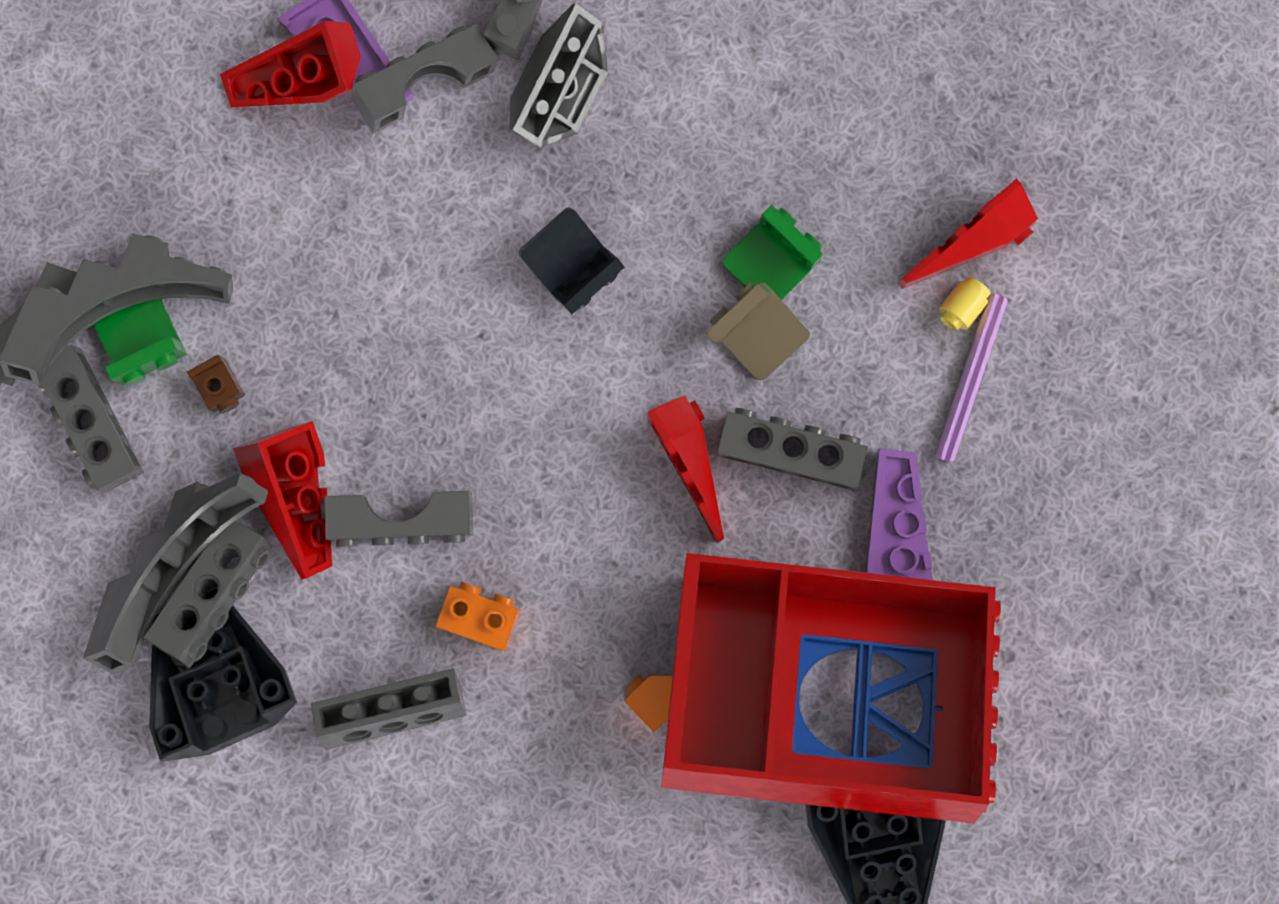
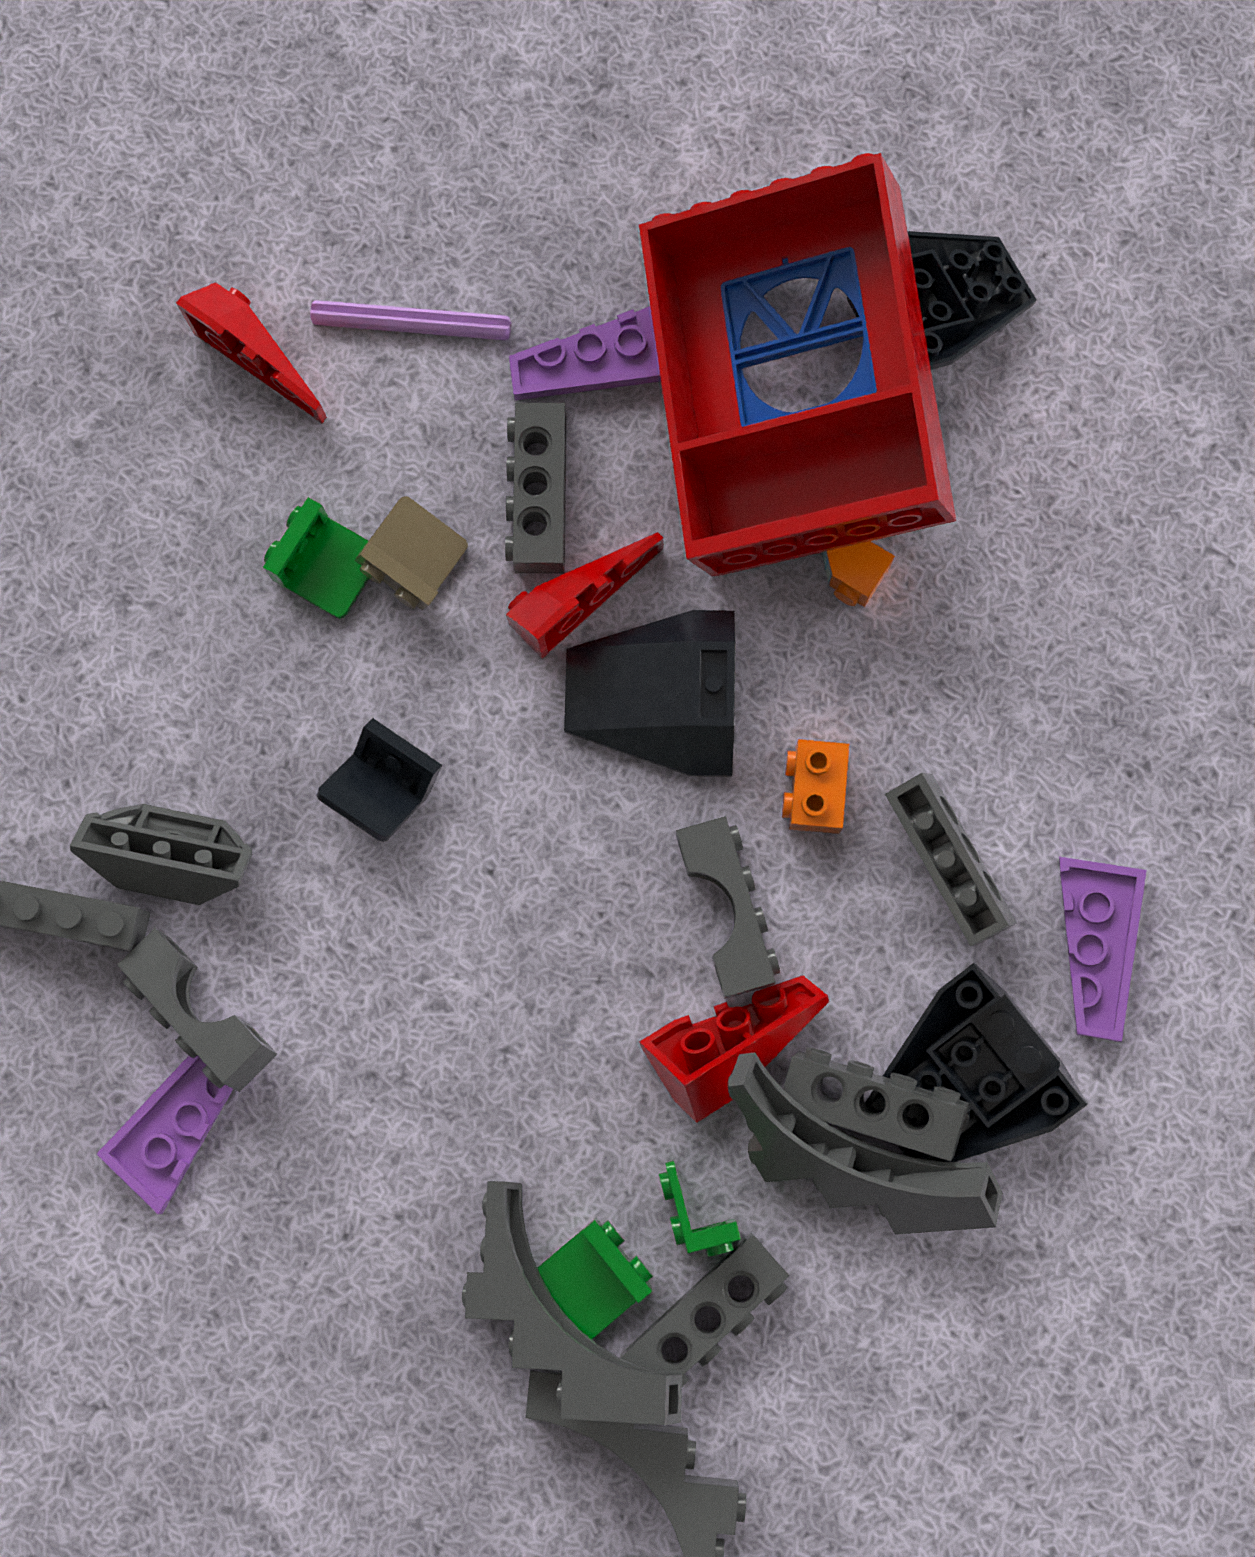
camera: 105 degrees left, 5 degrees down
(142, 430) = (713, 1238): none -> green bracket
(227, 396) = (610, 1177): reddish brown brick -> none
(297, 71) = (218, 1159): red wedge -> none
(300, 817) = (1101, 931): none -> medium lavender wing
(593, 508) = (659, 692): none -> black wedge
(964, 304) = (329, 343): light yellow brick -> none

